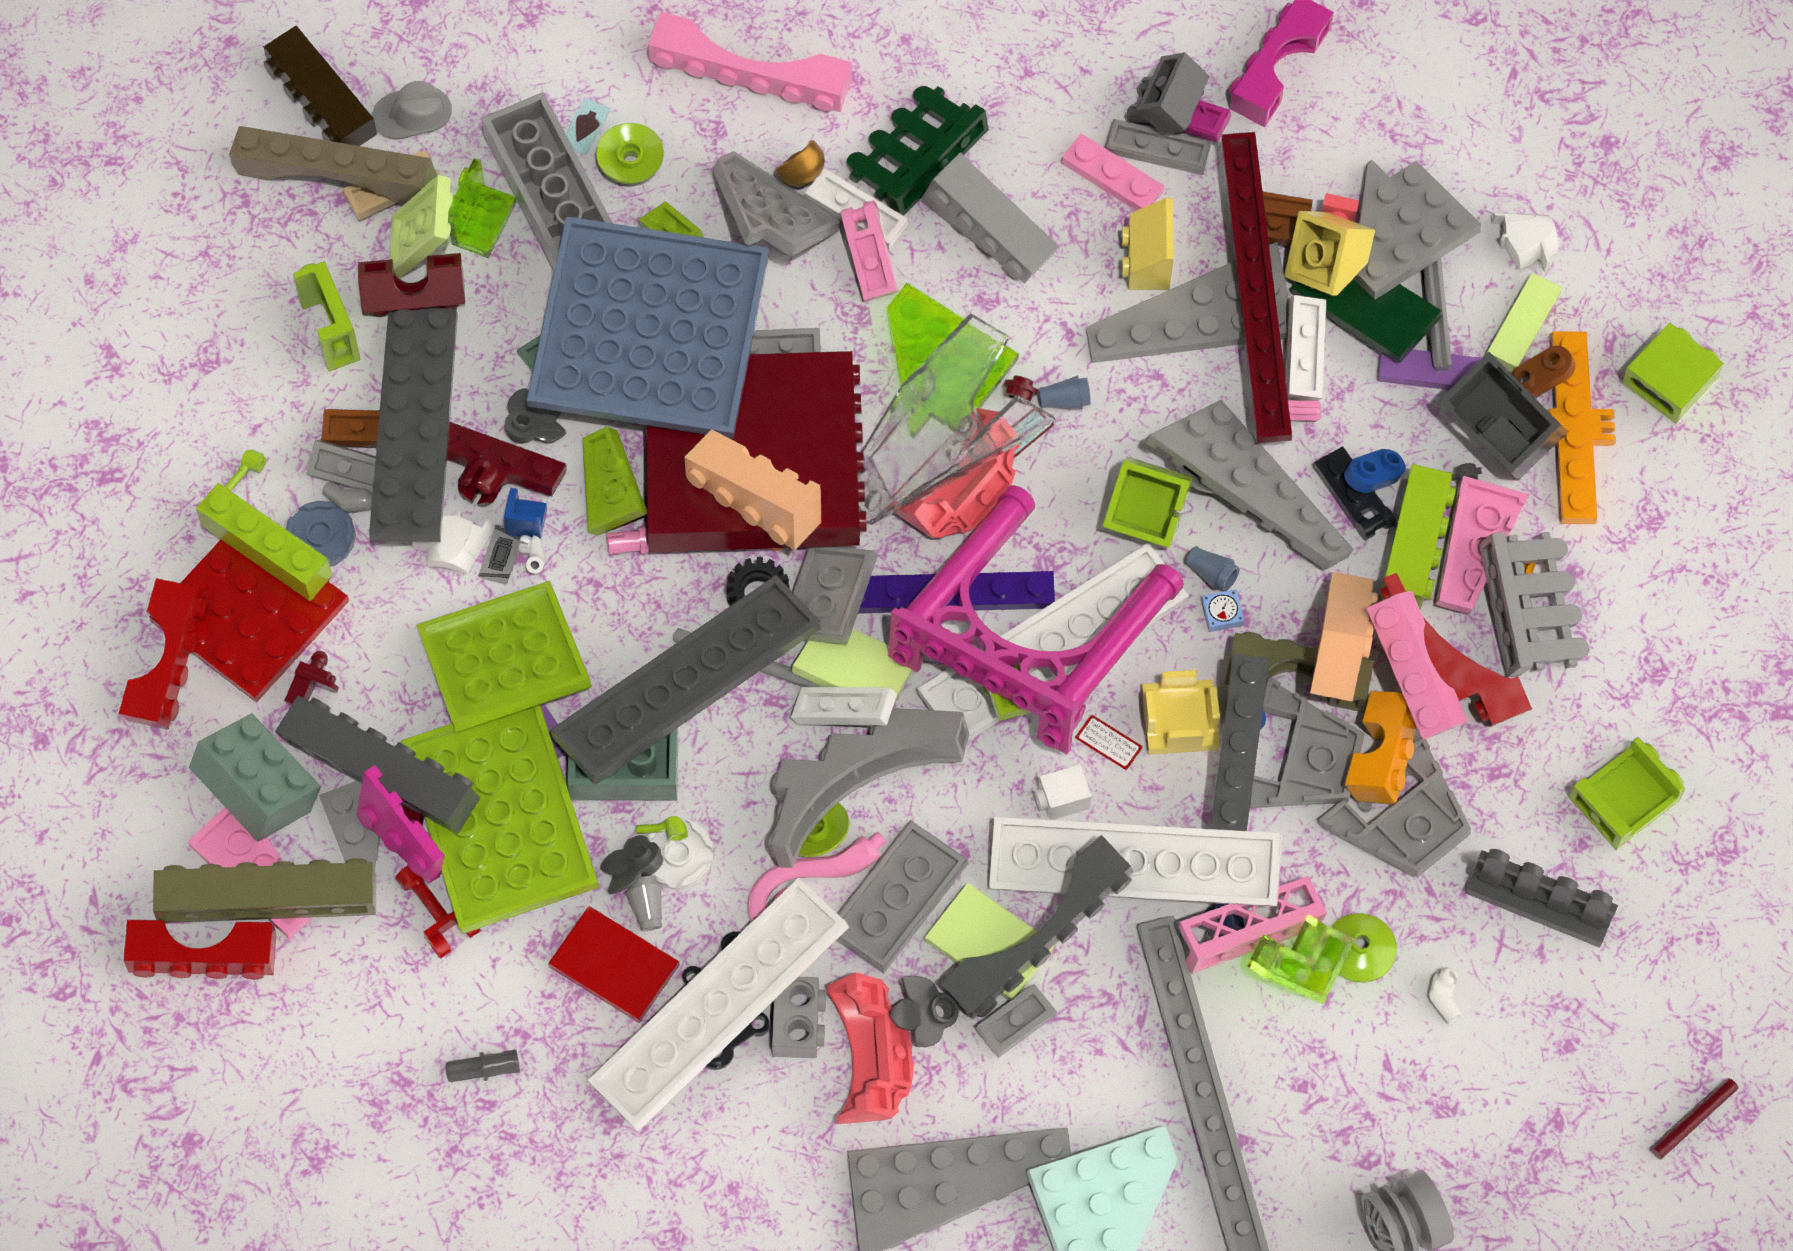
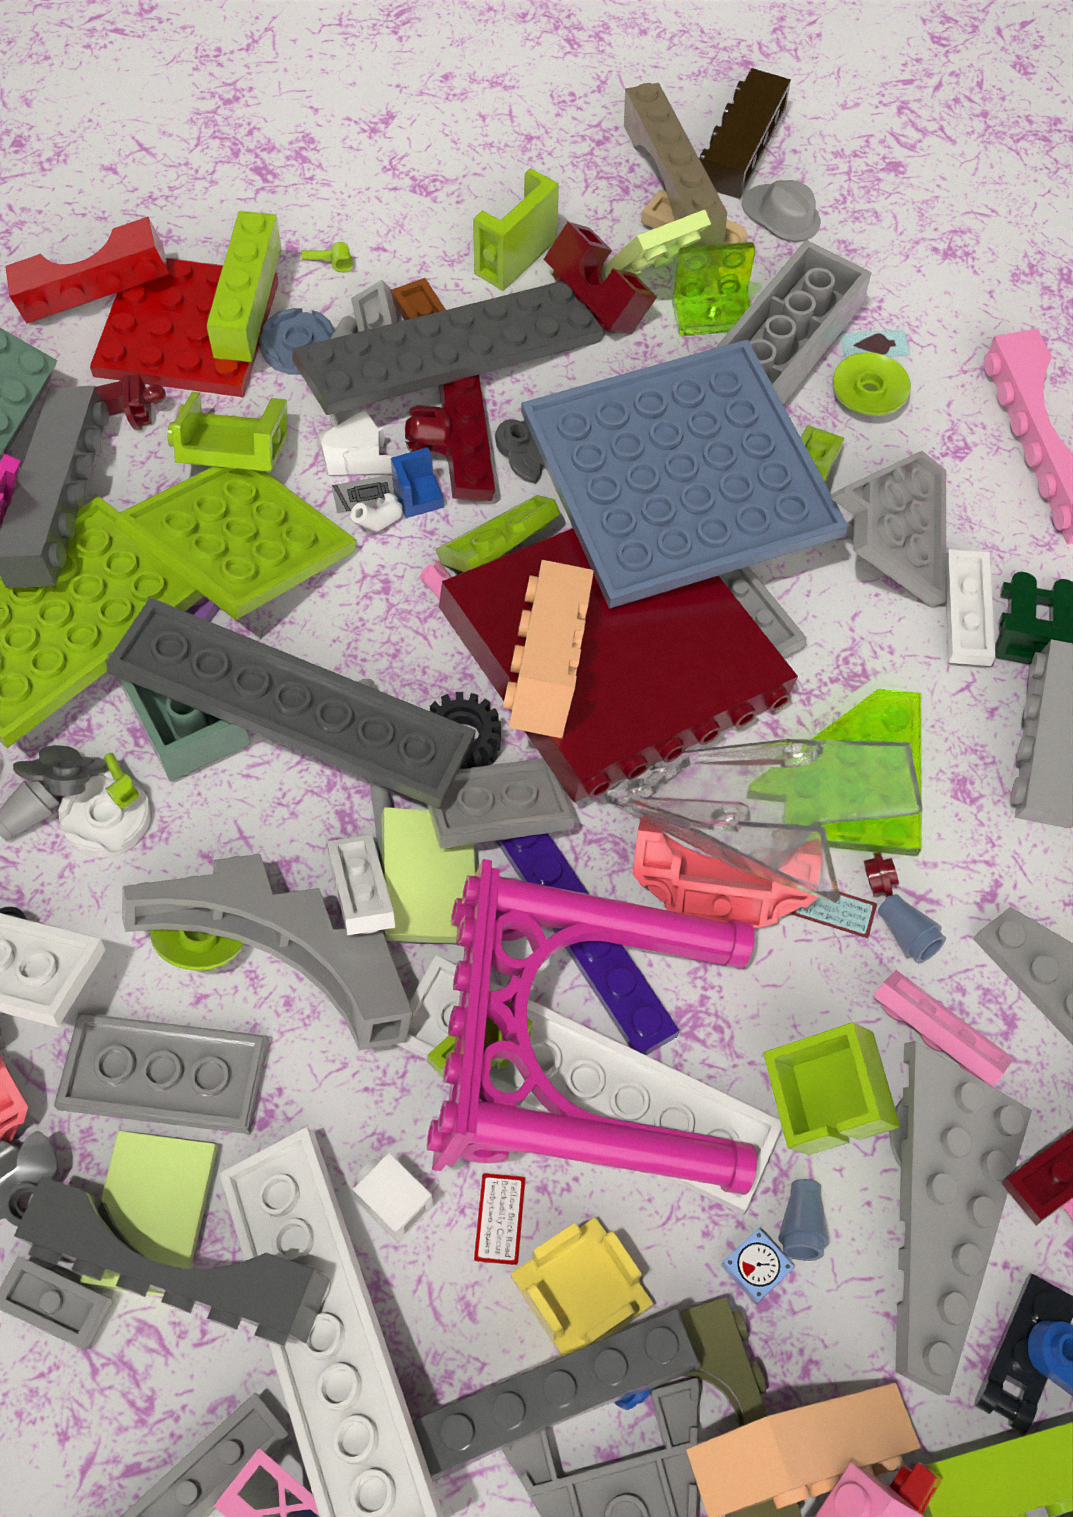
camera: 60 degrees right, 5 degrees down
(403, 621) = (228, 439): none -> lime panel
(802, 166) = (976, 527): pearl gold hair -> none
(847, 863) = (179, 996): bright pink plant -> none
(869, 251) = (928, 638): bright pink plate -> none
(1142, 417) = (942, 1028): none -> bright pink plate

